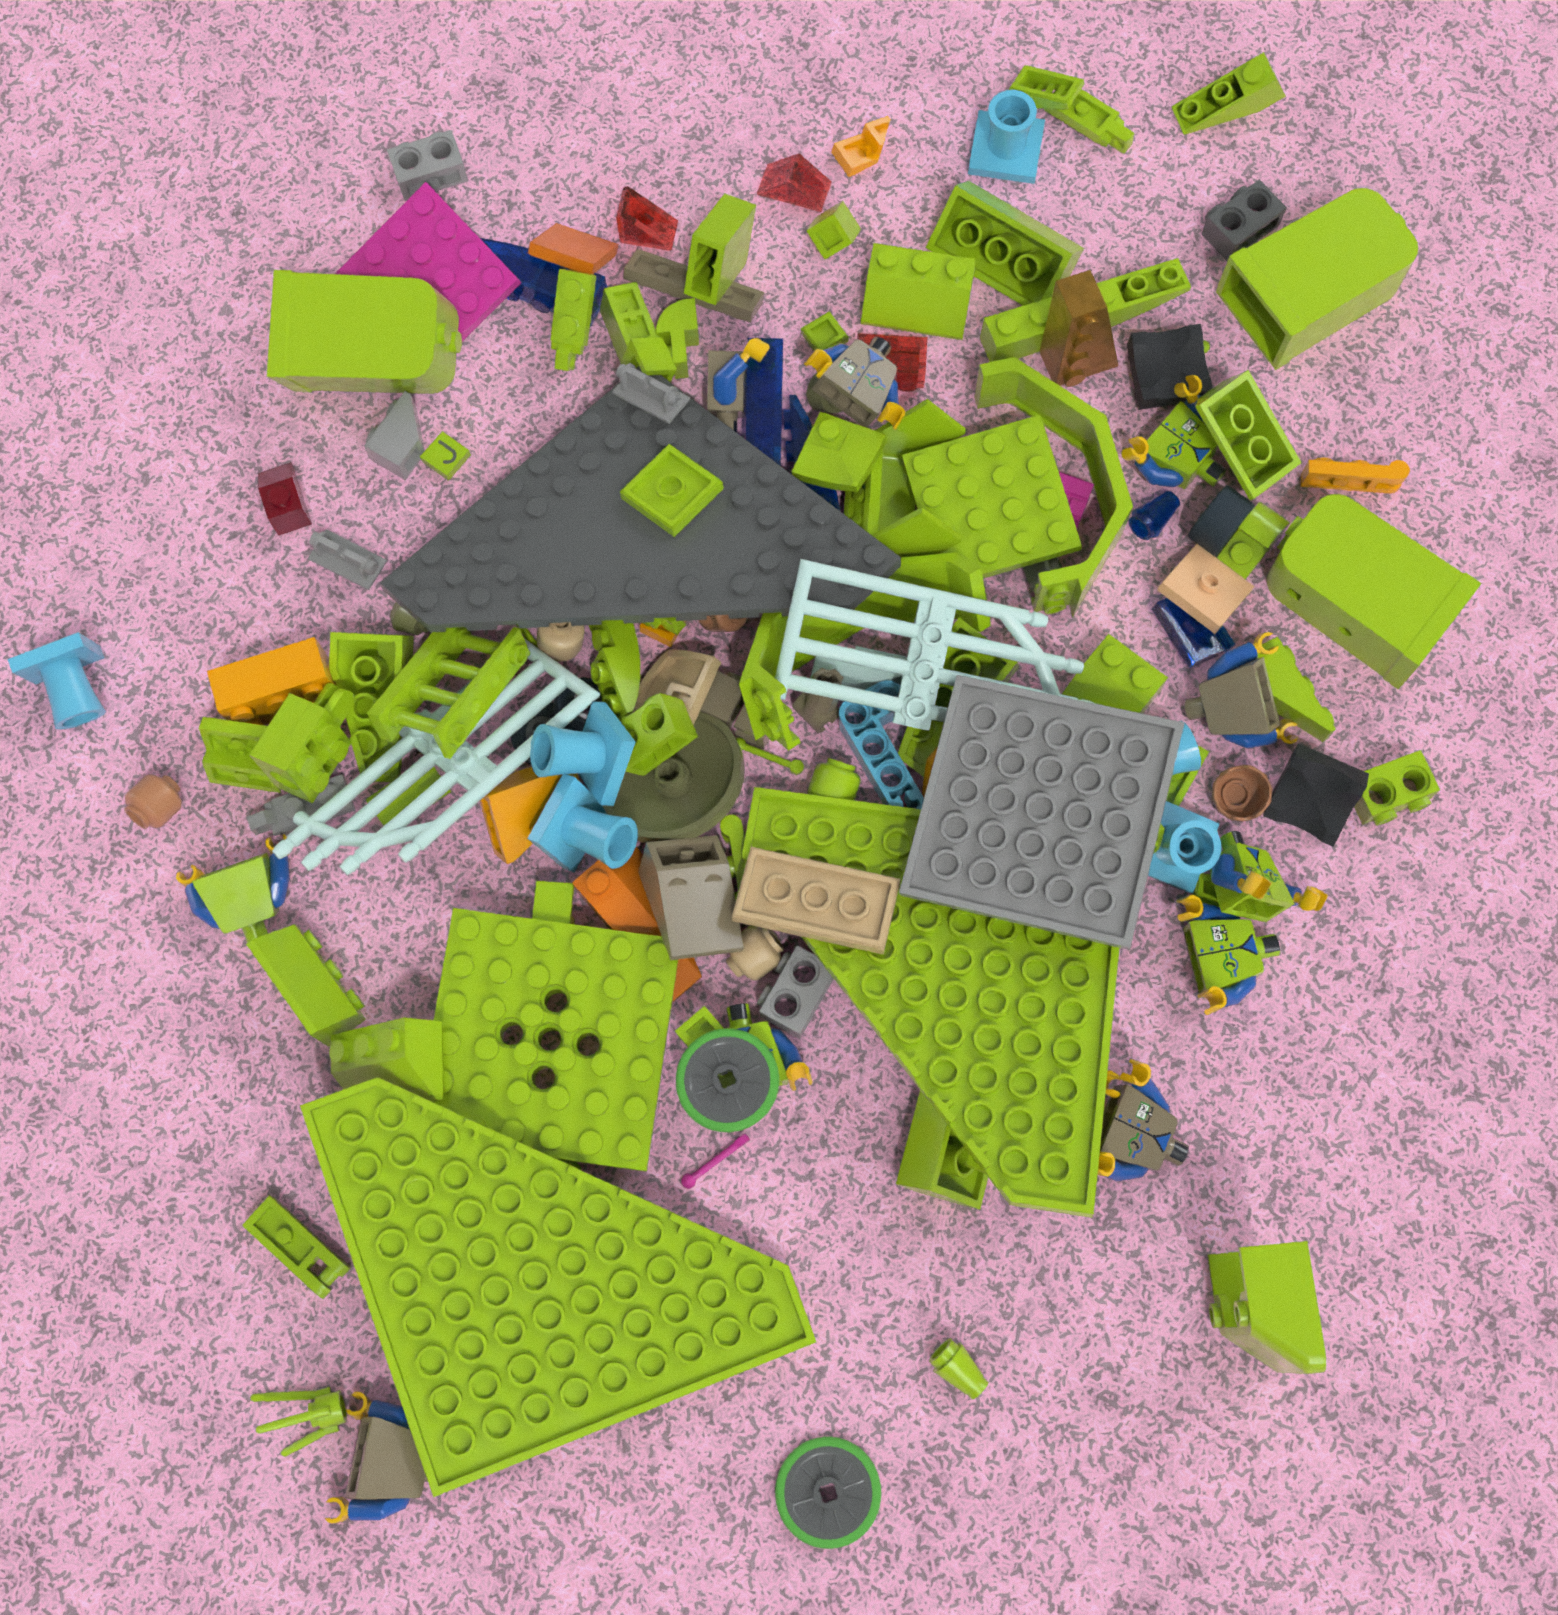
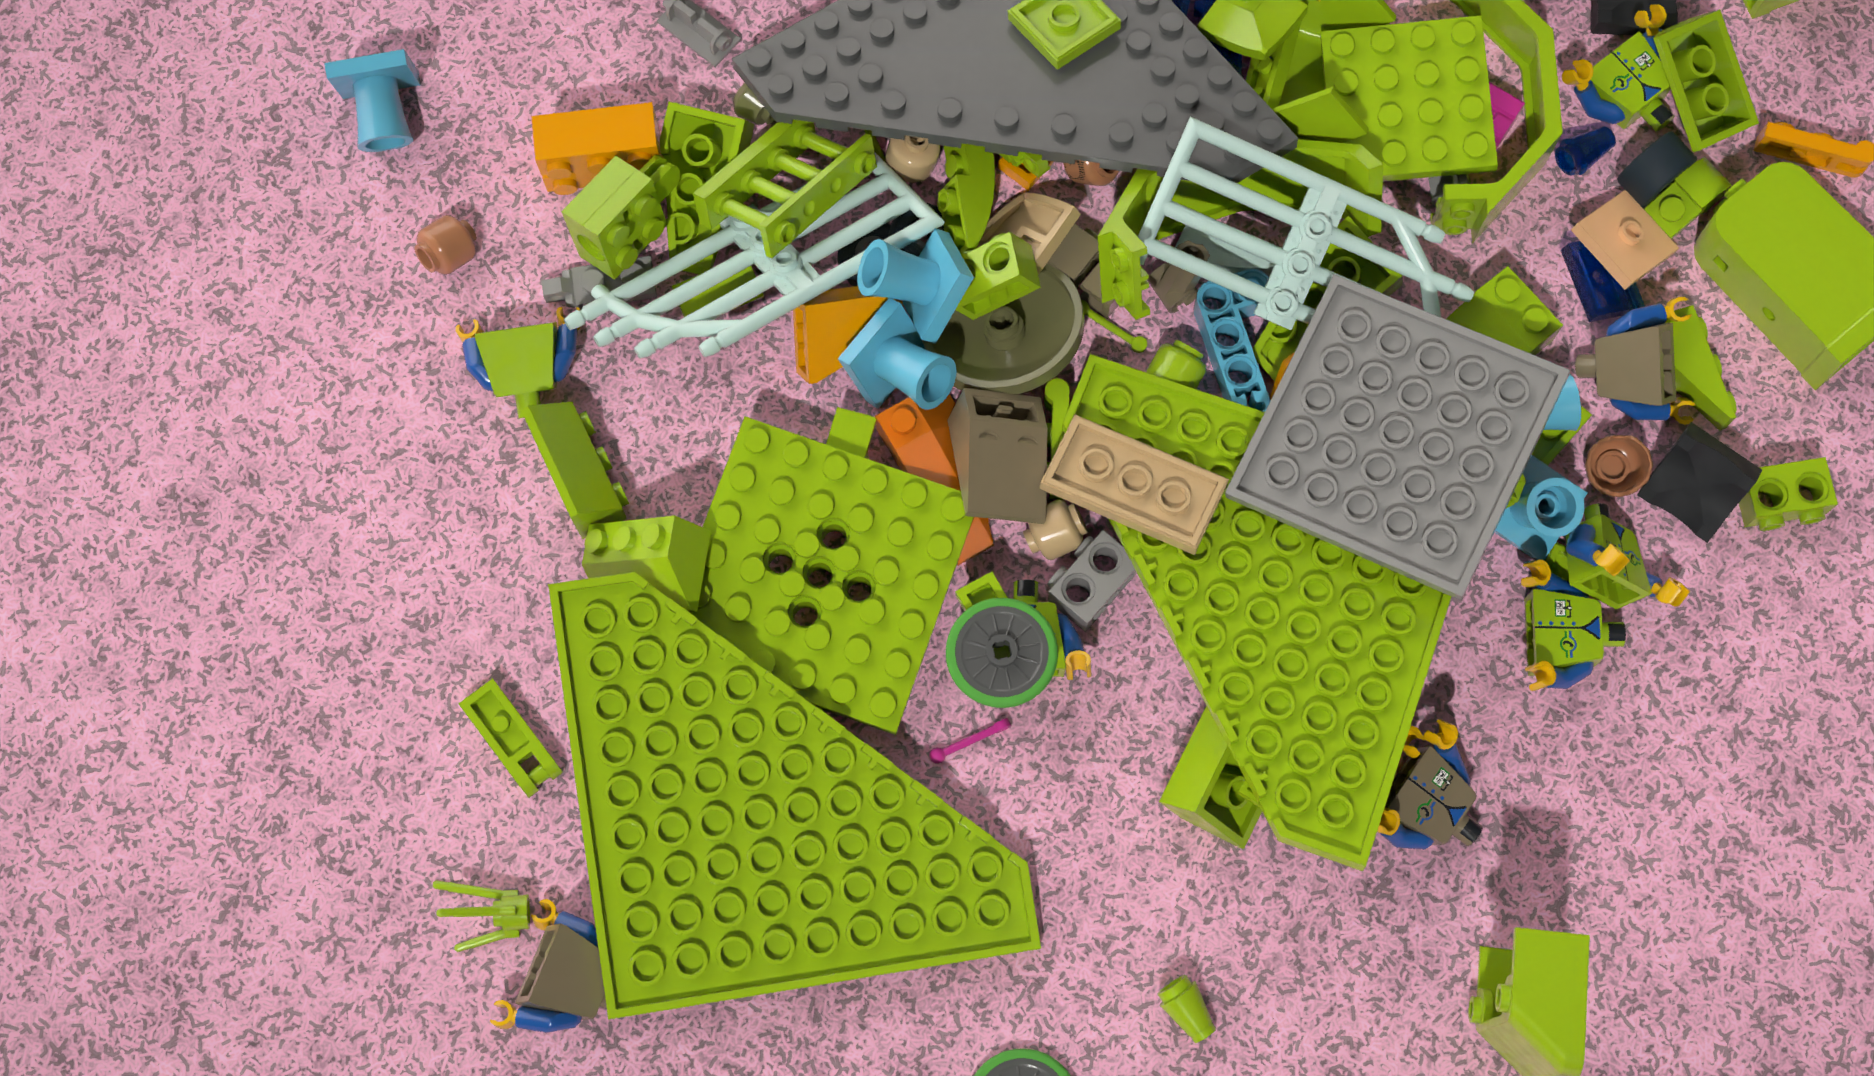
camera: 10 degrees right, 0 degrees up
(228, 753) = (536, 212): lime slope -> none

